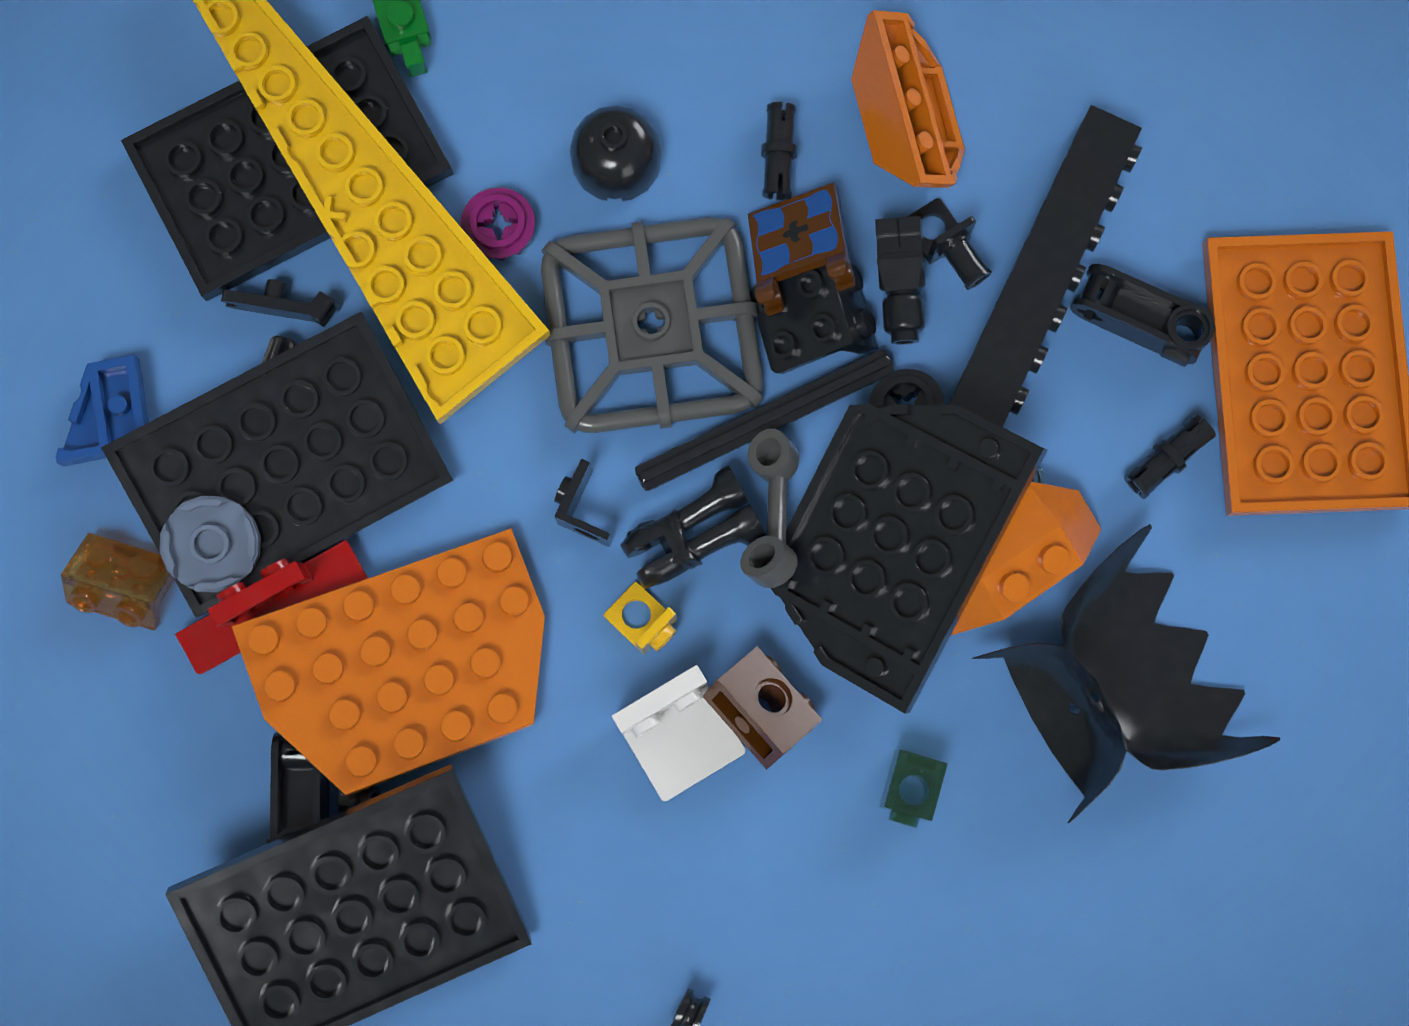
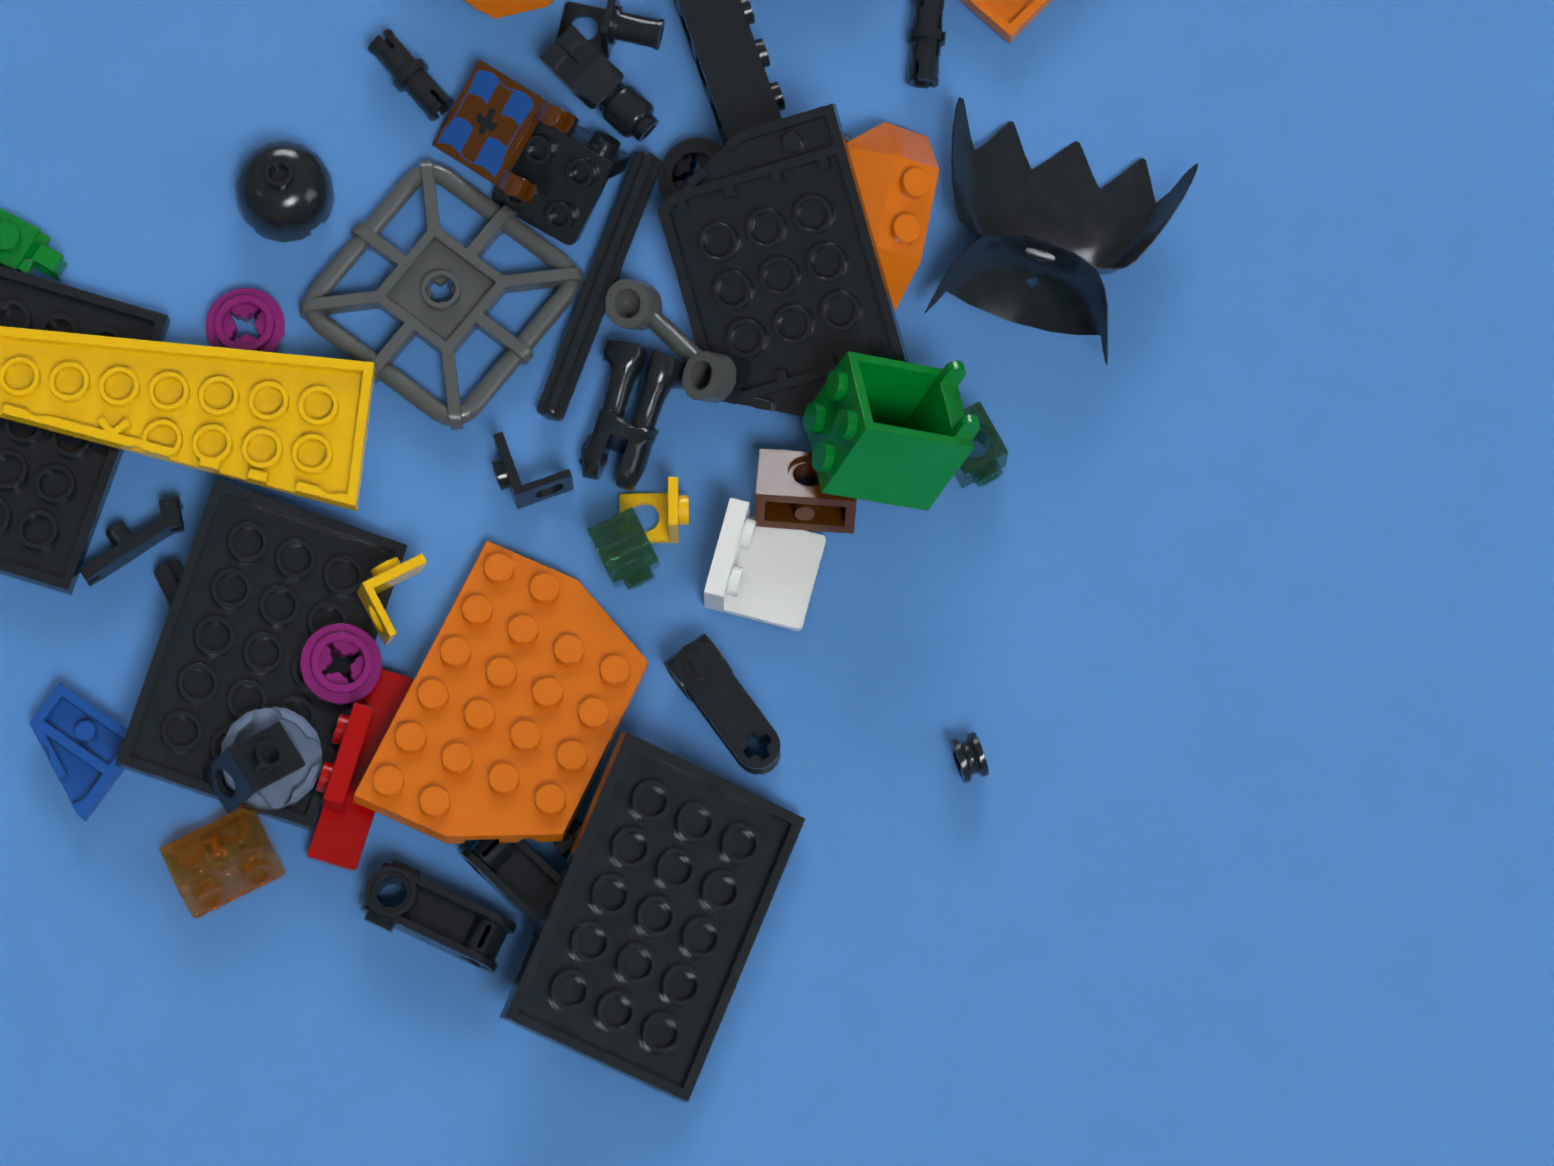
camera: 45 degrees left, 5 degrees down
(188, 541) = (253, 765): none -> black bracket
(216, 763) = (437, 916): none -> black piece
(301, 535) = (346, 641): none -> magenta gear
(408, 489) = (384, 577): none -> yellow bracket
(555, 805) = (724, 703): none -> black piece
(594, 627) = (625, 549): none -> clear green brick
(856, 727) = (889, 430): none -> green container

